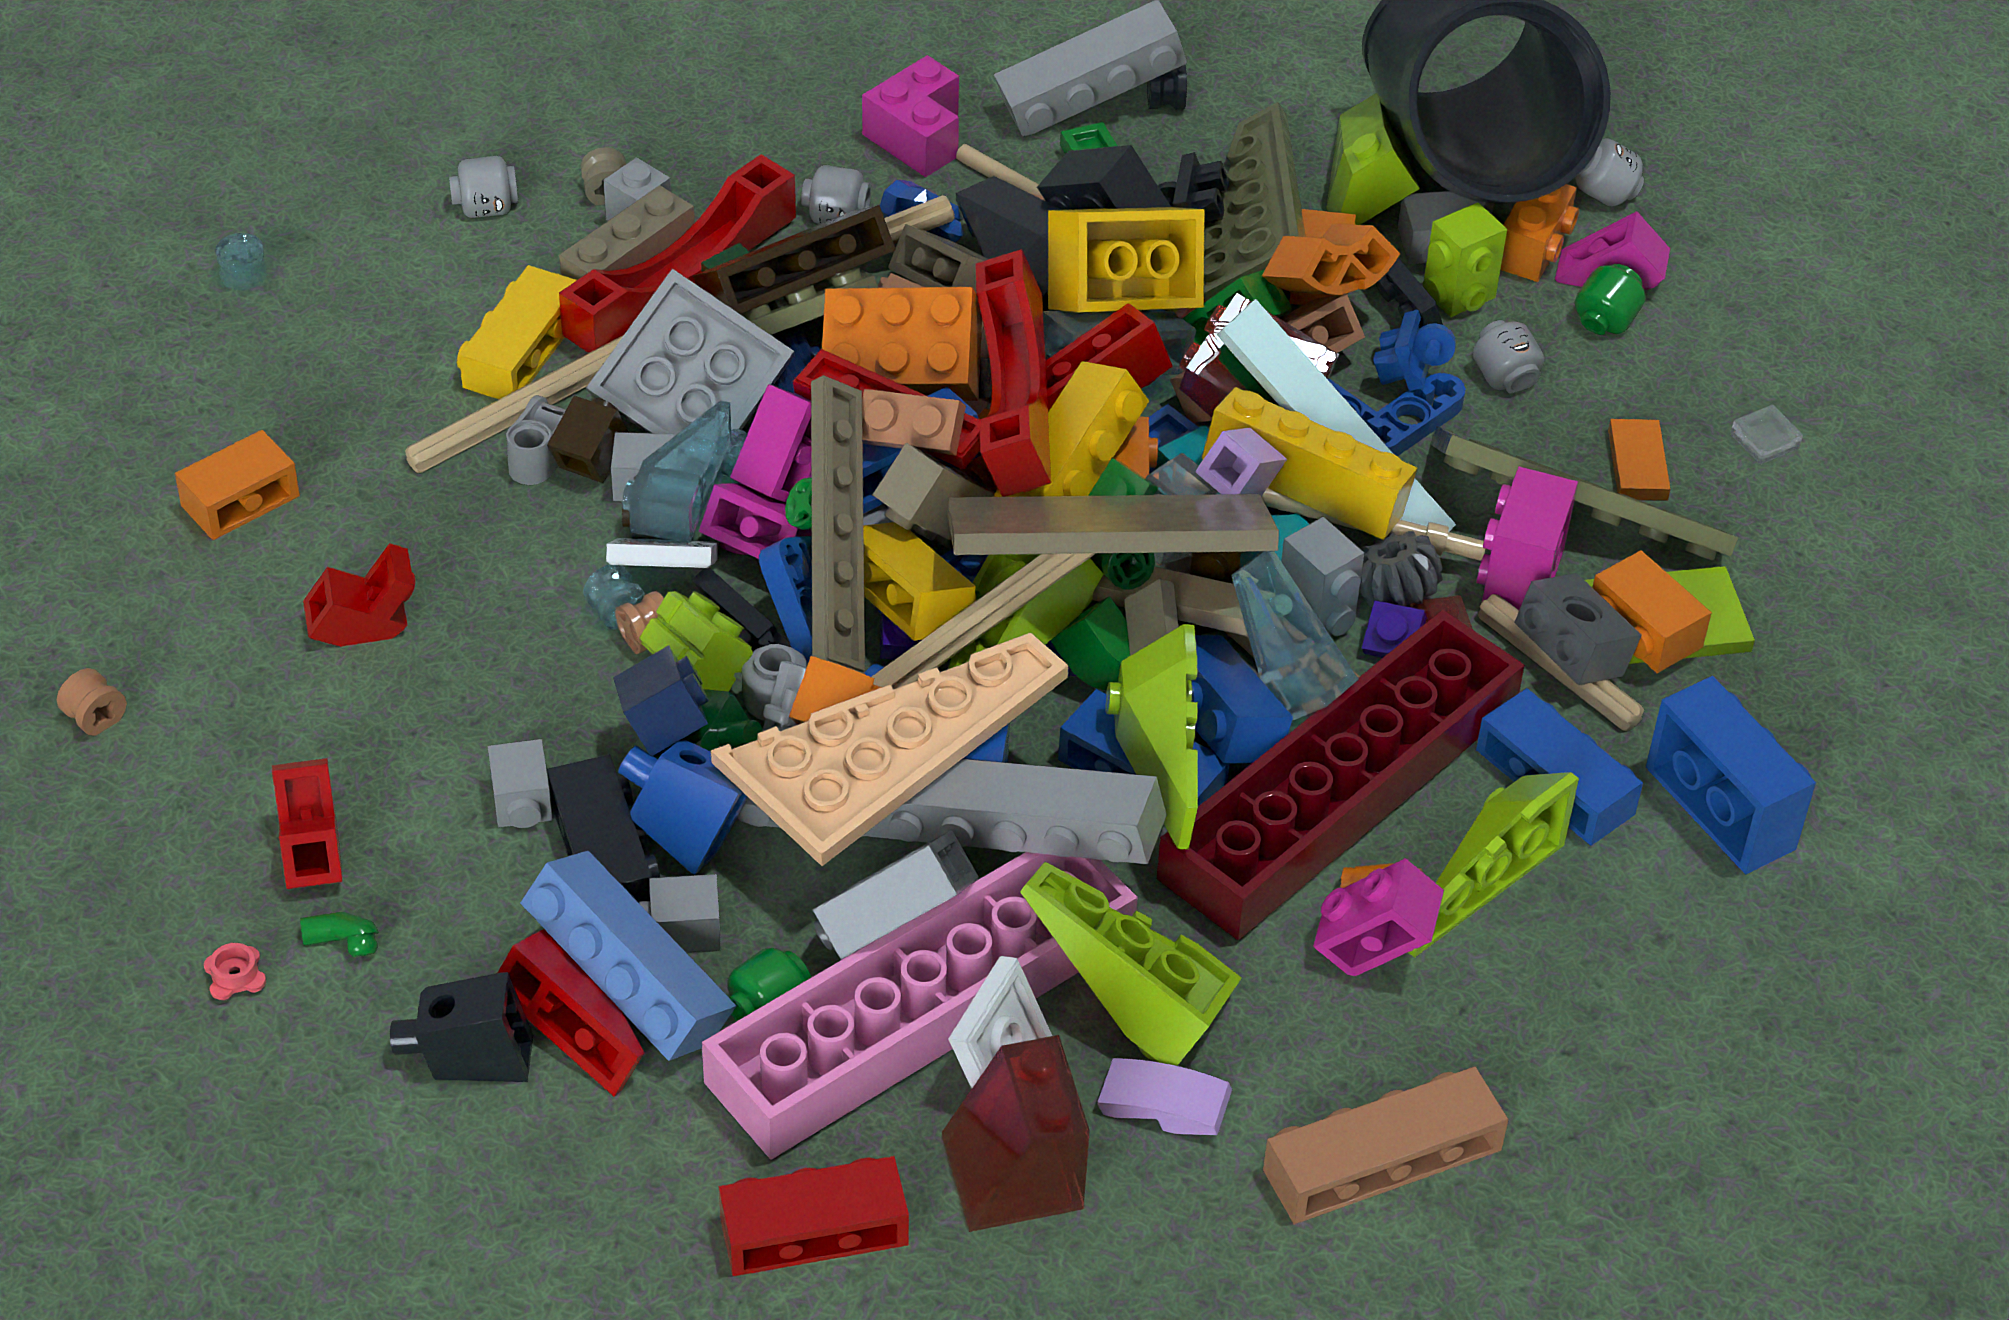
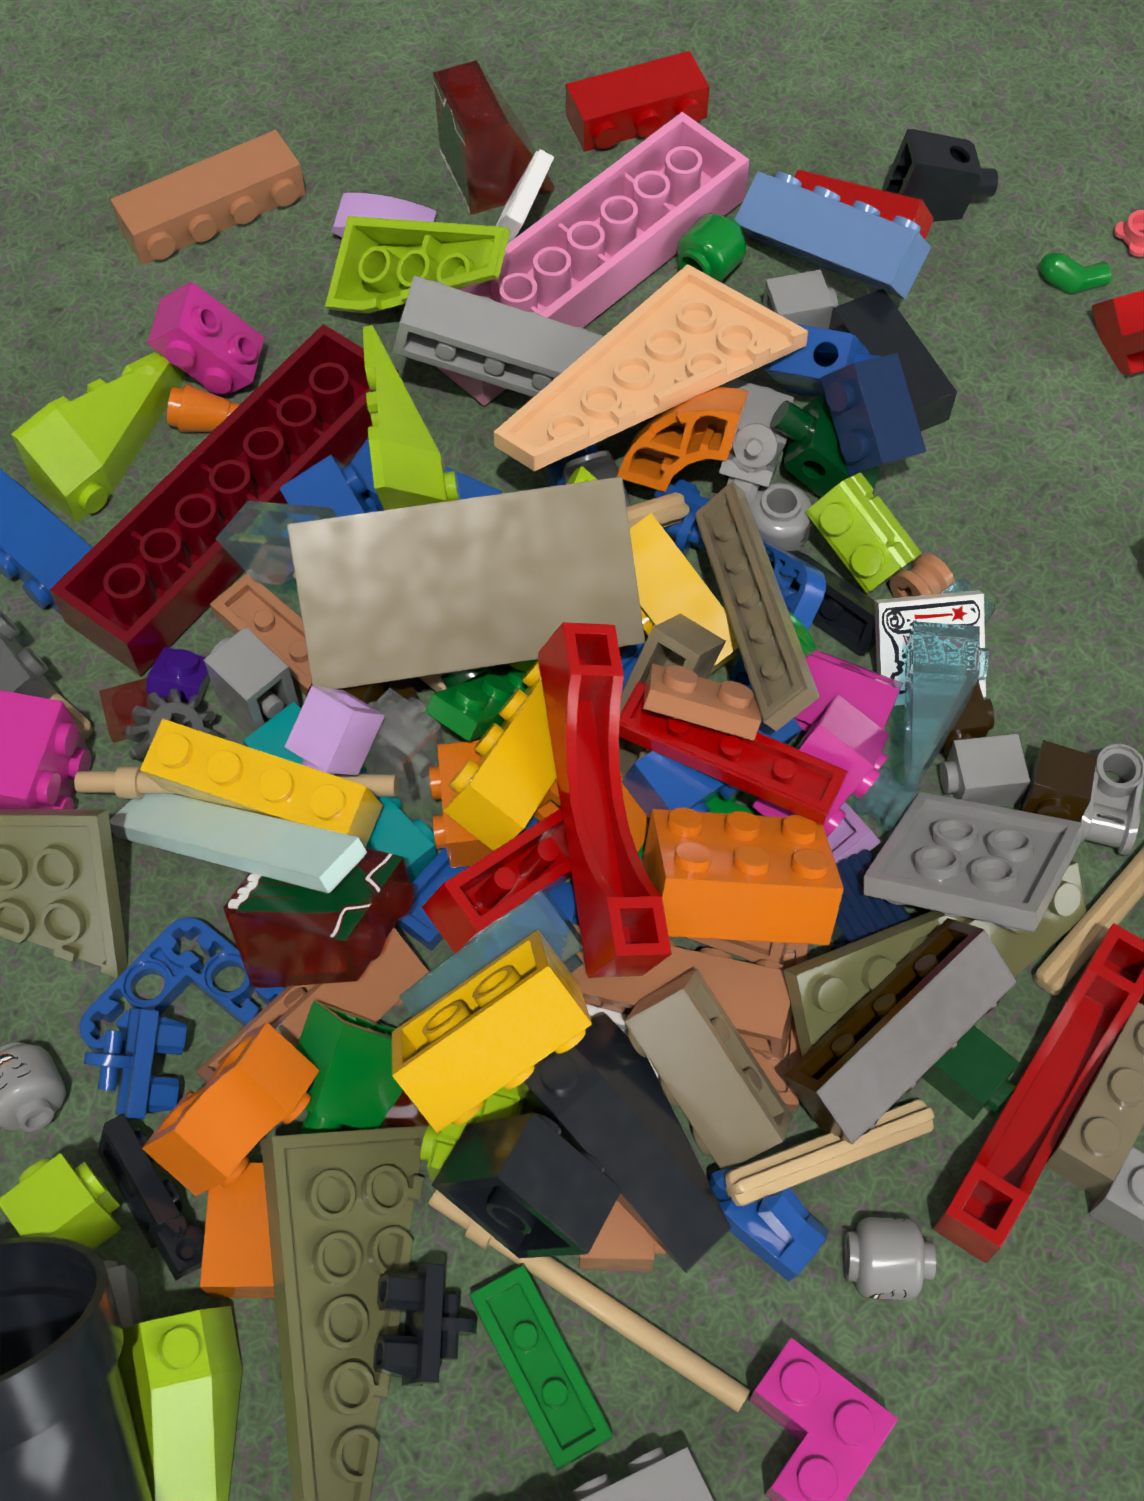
camera: 175 degrees right, 15 degrees up
(520, 783) = (982, 404): light grey brick -> none
(894, 895) = (585, 257): window -> none

